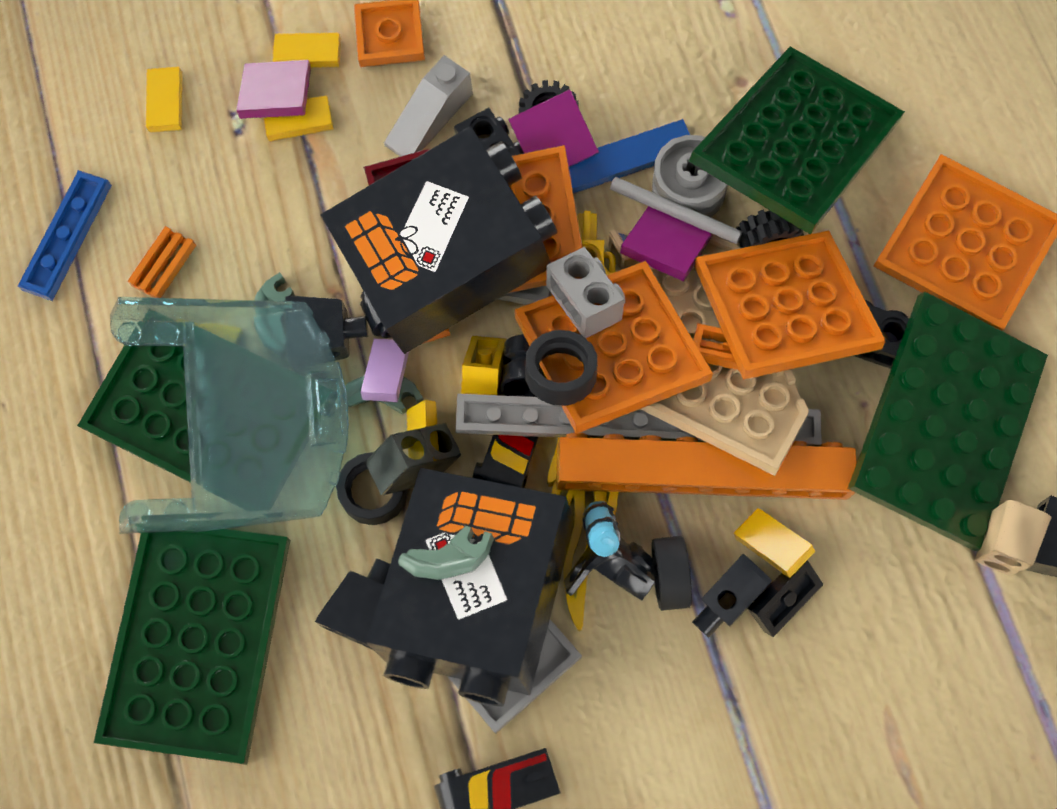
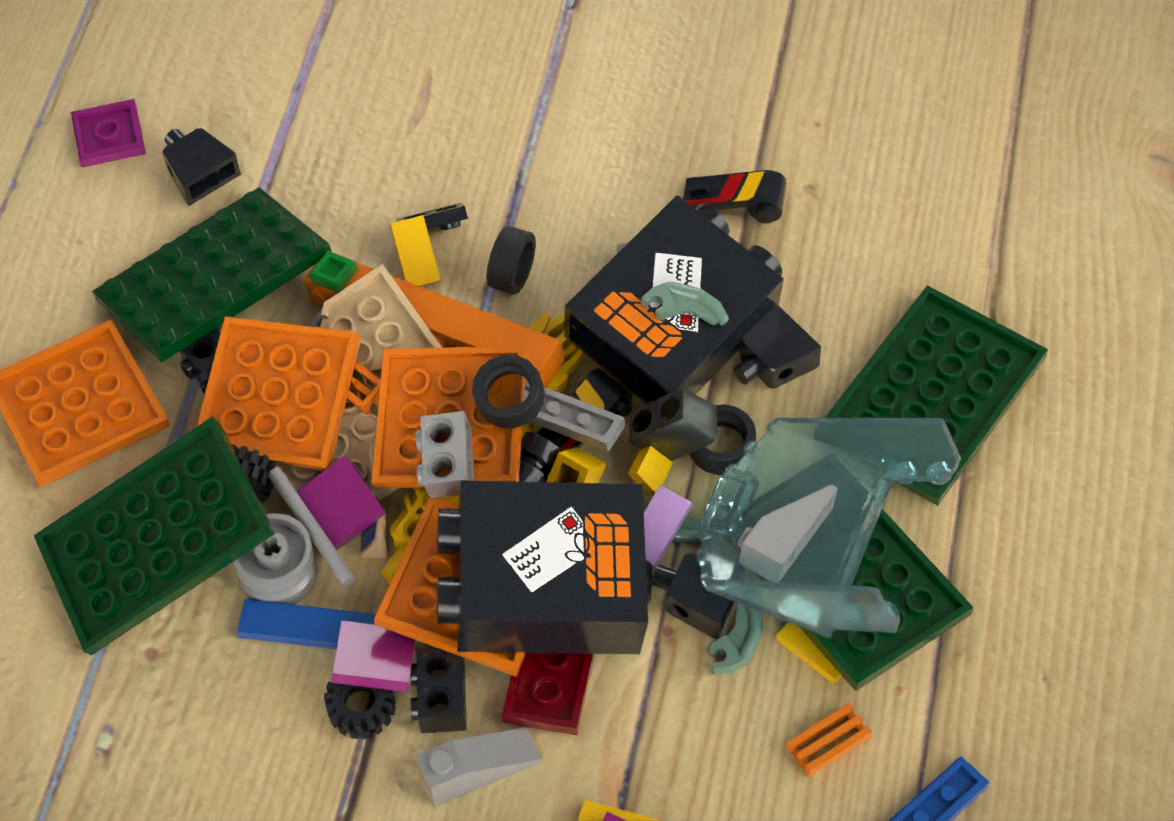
camera: 155 degrees left, 15 degrees down
(255, 382) = (784, 533): none -> light grey slope
(610, 555) = (548, 286): black piece -> none
(741, 580) = (468, 229): black torso -> none
(829, 462) = (333, 271): none -> green tile
(1012, 537) = (238, 165): tan piece -> none

